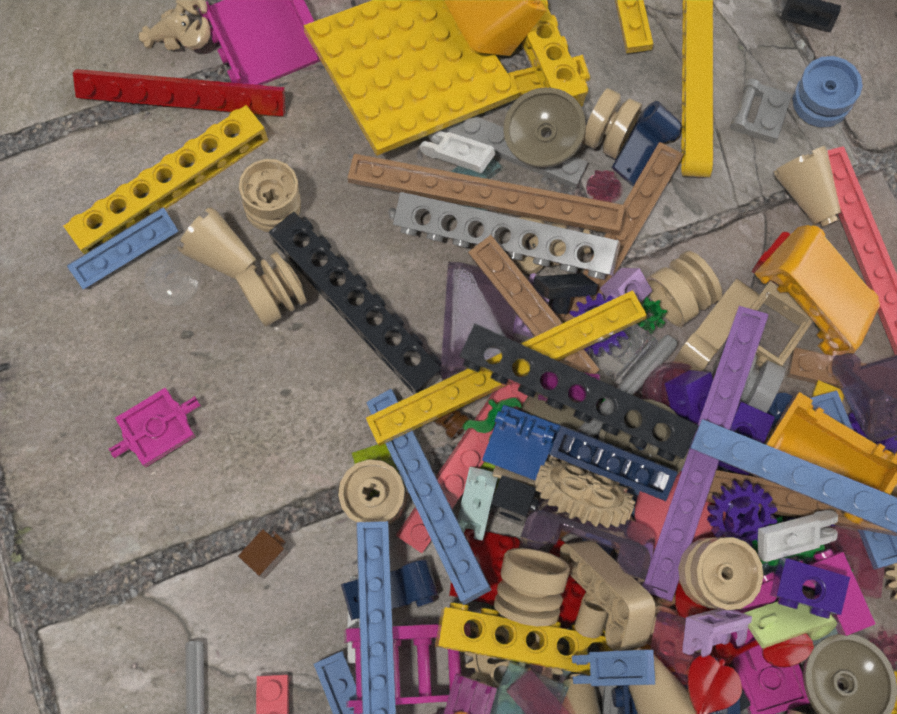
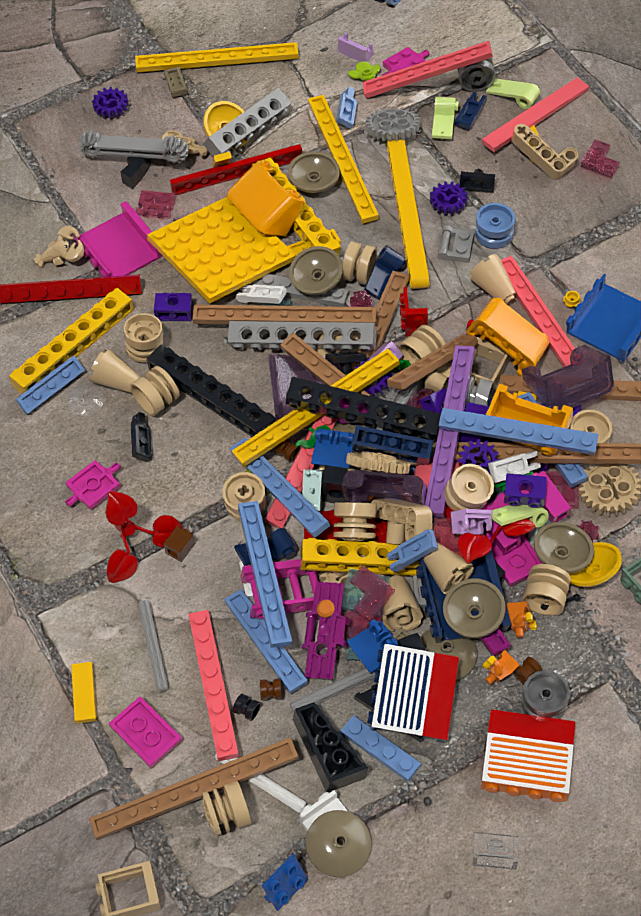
camera: 10 degrees left, 15 degrees down
(180, 501) = (118, 511): none -> red plant
(238, 360) = (140, 438): none -> black hinge
(334, 158) = (173, 306): none -> dark purple brick
(676, 236) = (411, 318): none -> red bracket
(695, 322) = (429, 363): none -> medium nougat plate
(762, 32) = (448, 198): none -> dark purple gear

